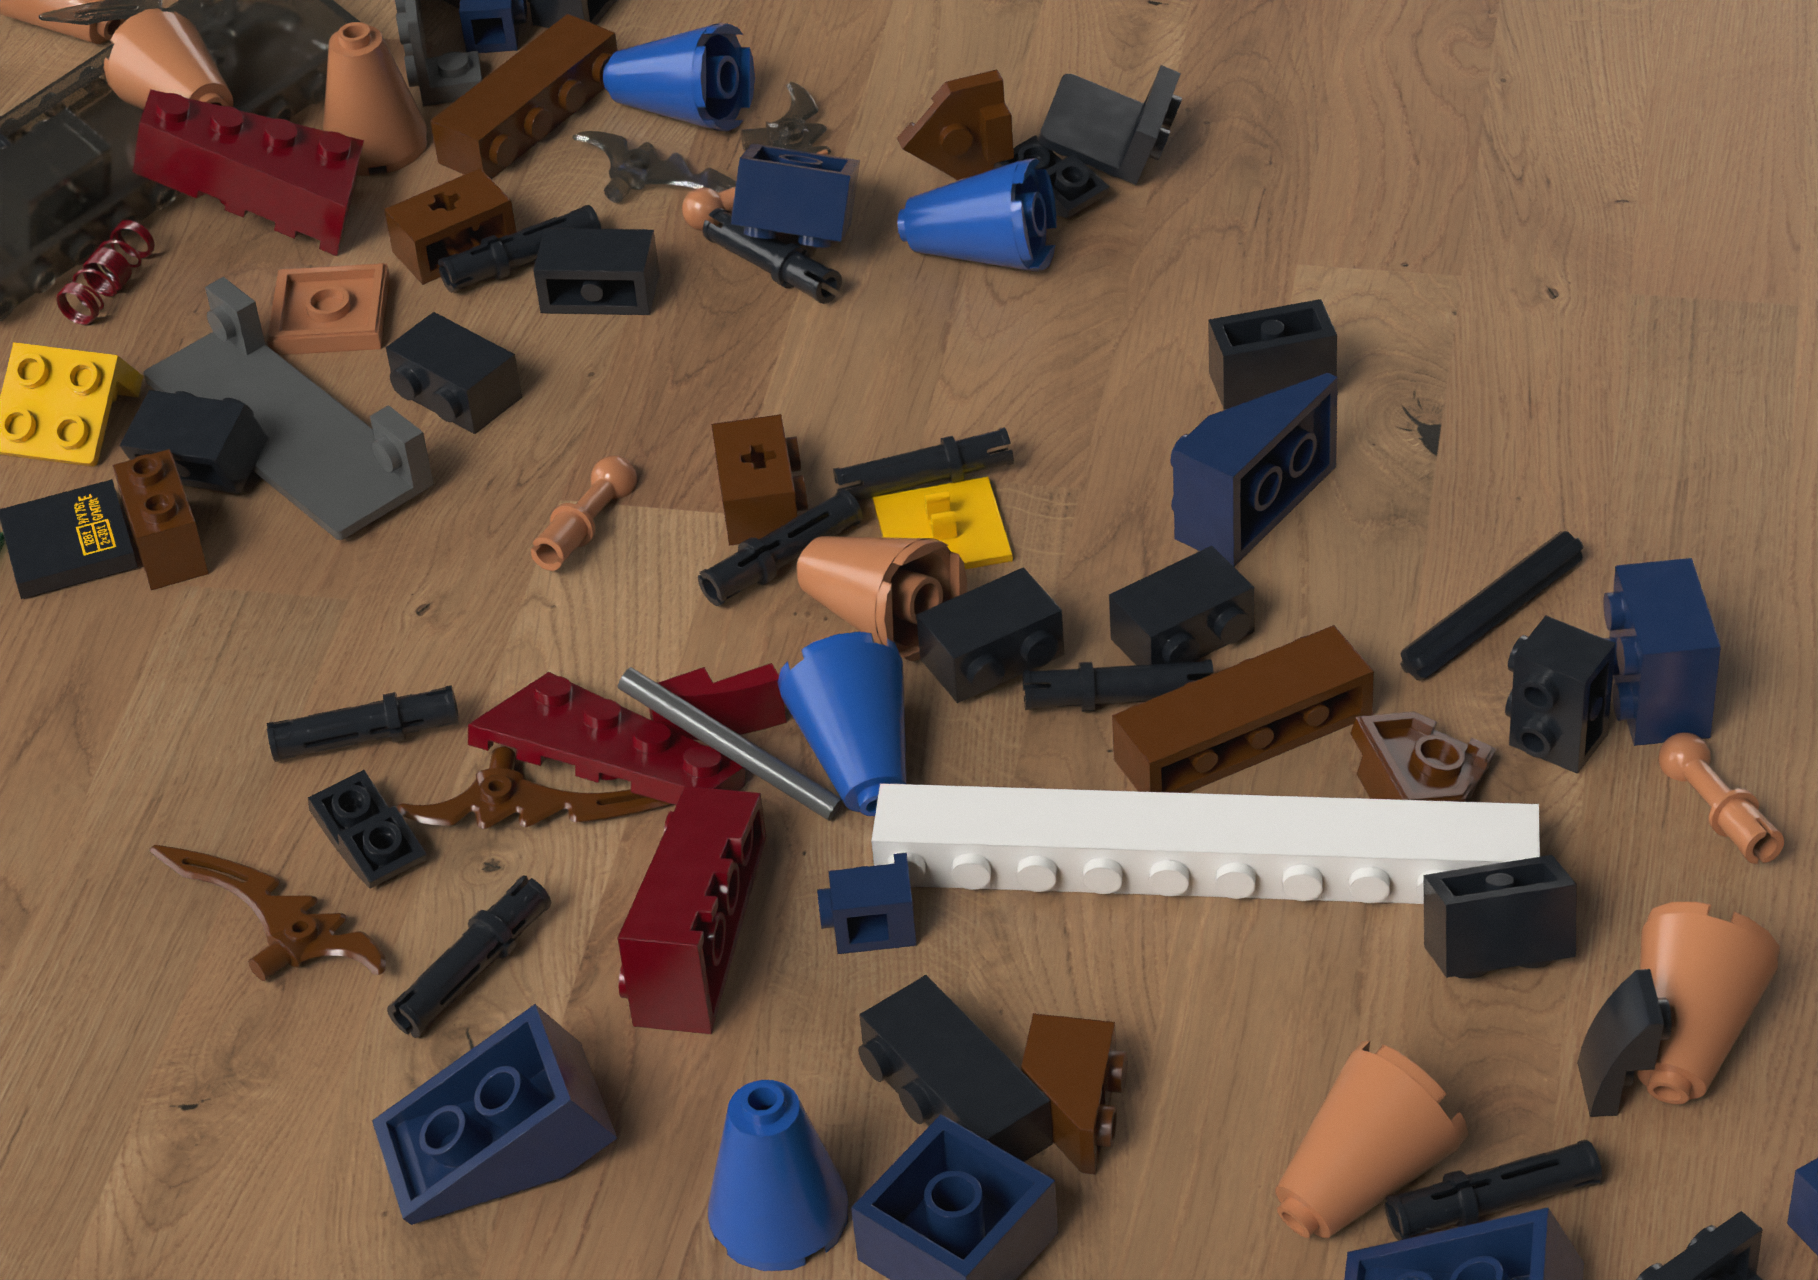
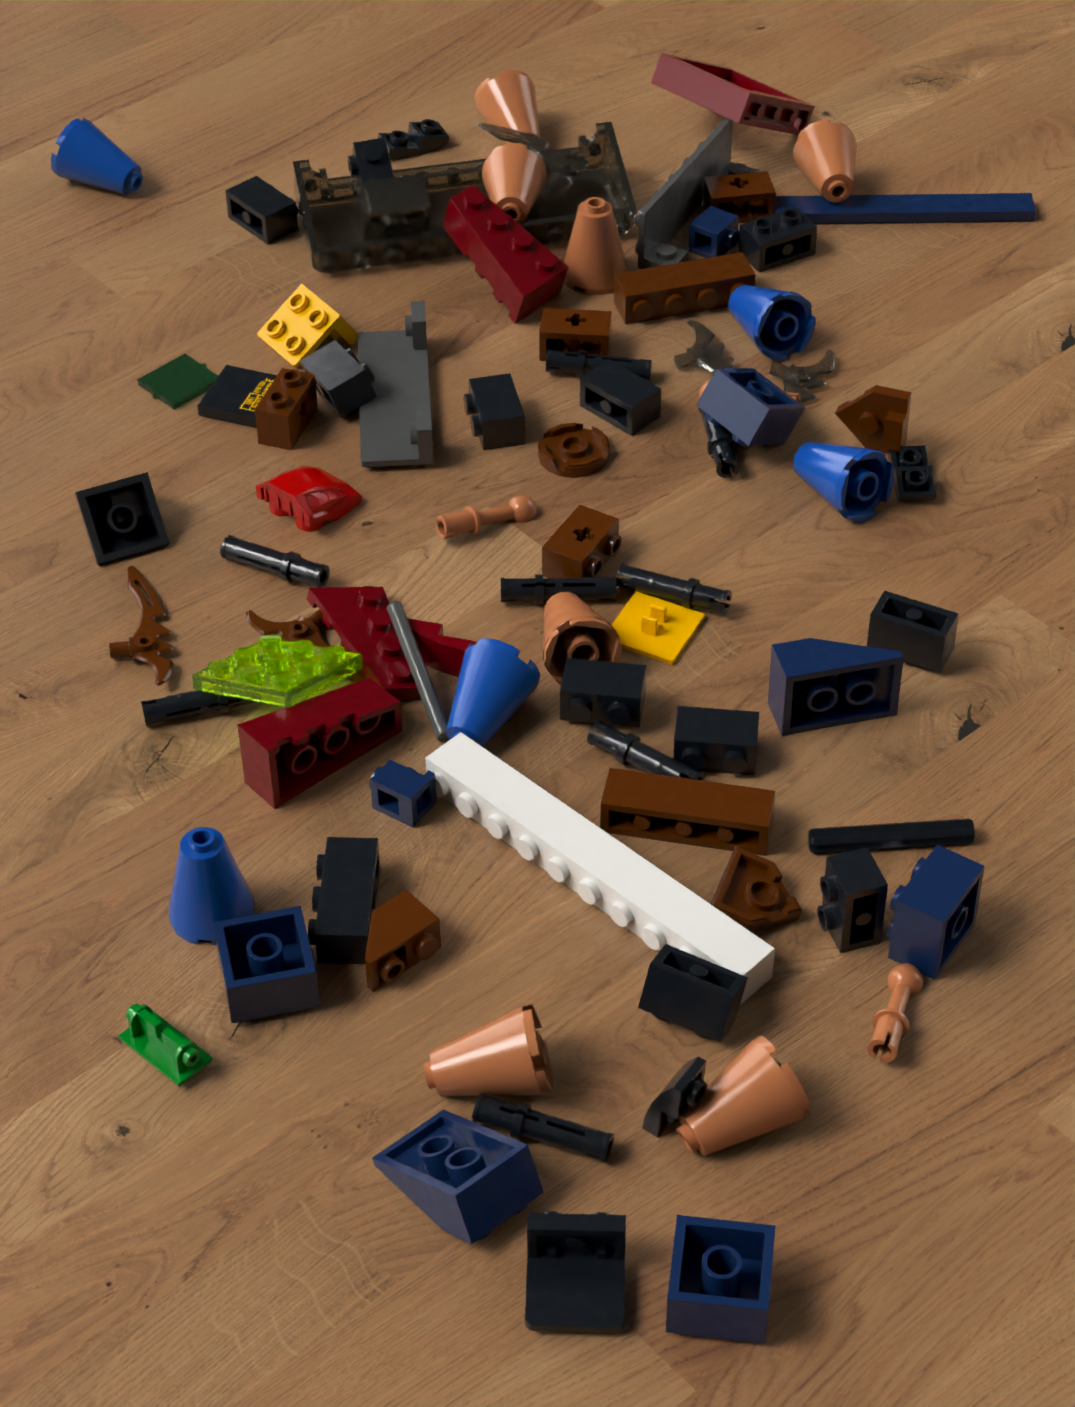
camera: 35 degrees right, 0 degrees up
(89, 784) = (122, 518): none -> black slope
(98, 279) = (393, 272): dark red piece -> none
(313, 613) = (308, 496): none -> red slope
(329, 309) = (479, 348): nougat tile -> none
(365, 830) = (224, 614): black slope -> none
(495, 1121) = (131, 784): dark blue slope -> none
(554, 851) = (277, 671): none -> clear neon green plate
(600, 370) = (573, 450): none -> reddish brown tile
(1110, 127) = (968, 460): black bracket -> none

